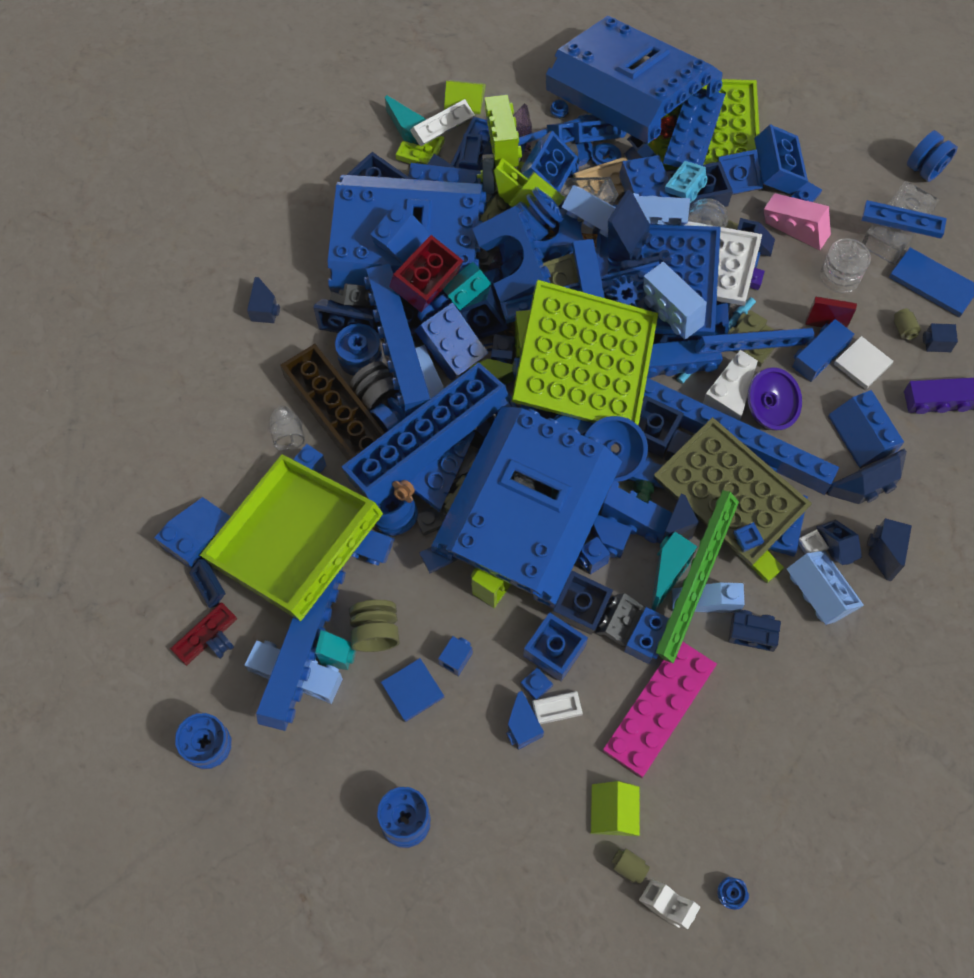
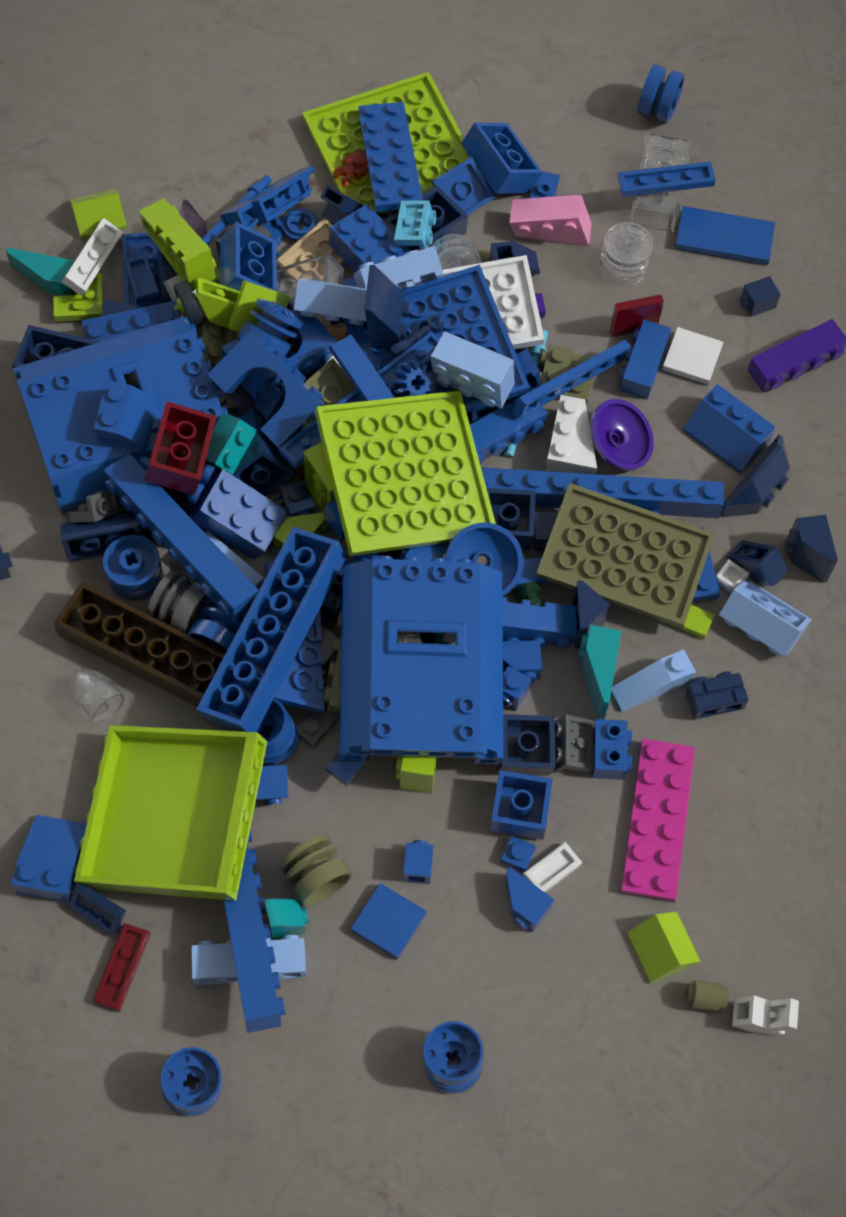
camera: 30 degrees left, 0 degrees up
(220, 644) = (149, 970): dark blue wheel -> none
(311, 458) = (144, 715): blue brick -> none
(403, 490) = (279, 706): medium nougat plate -> none
(559, 108) = (218, 183): blue plate -> none
(597, 78) = (250, 137): blue panel -> none
(697, 577) = (635, 663): bright green plate -> none
(724, 893) = (828, 970): blue plate -> none
(748, 537) = (667, 598): blue tile -> none
(906, 324) = (718, 295): olive brick -> none

